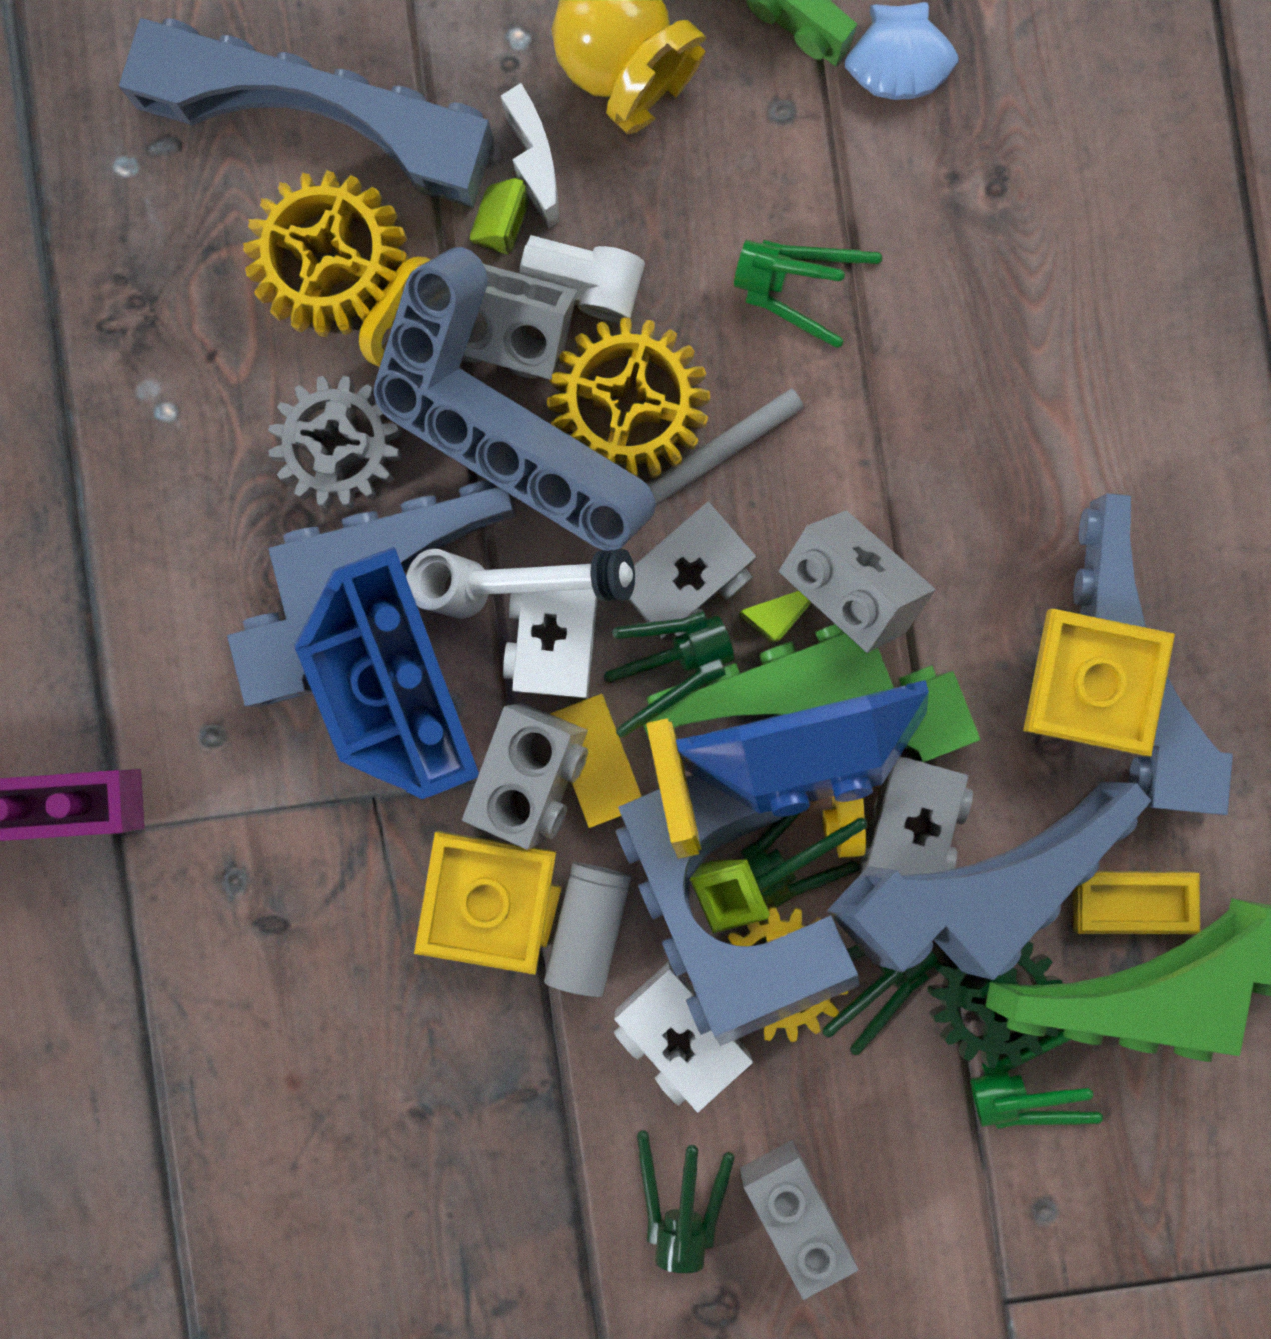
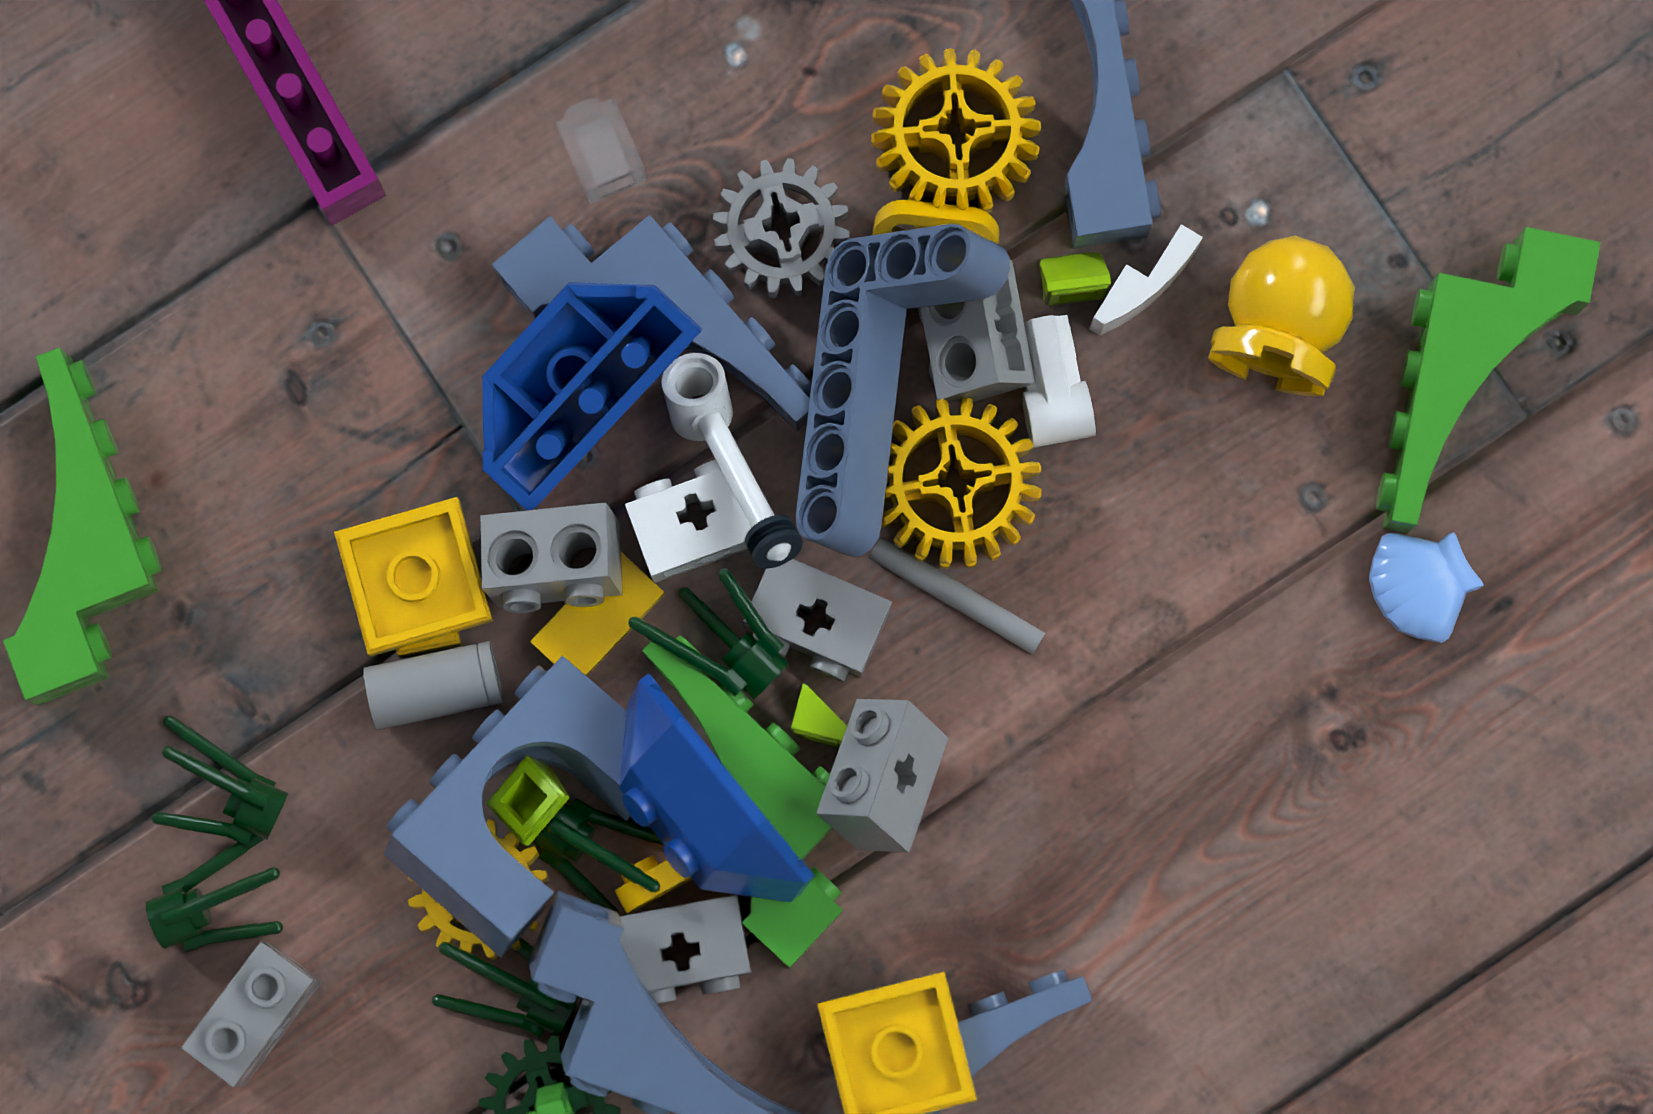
camera: 55 degrees right, 5 degrees down
(189, 564) = (600, 149): none -> clear brick
(324, 1168) = (92, 549): none -> bright green arch
(616, 1134) = (252, 801): none -> dark green plant
(674, 789) = (601, 695): yellow tile -> none
(687, 1075) = (337, 839): white brick -> none
(765, 269) = (1145, 553): green plant -> none

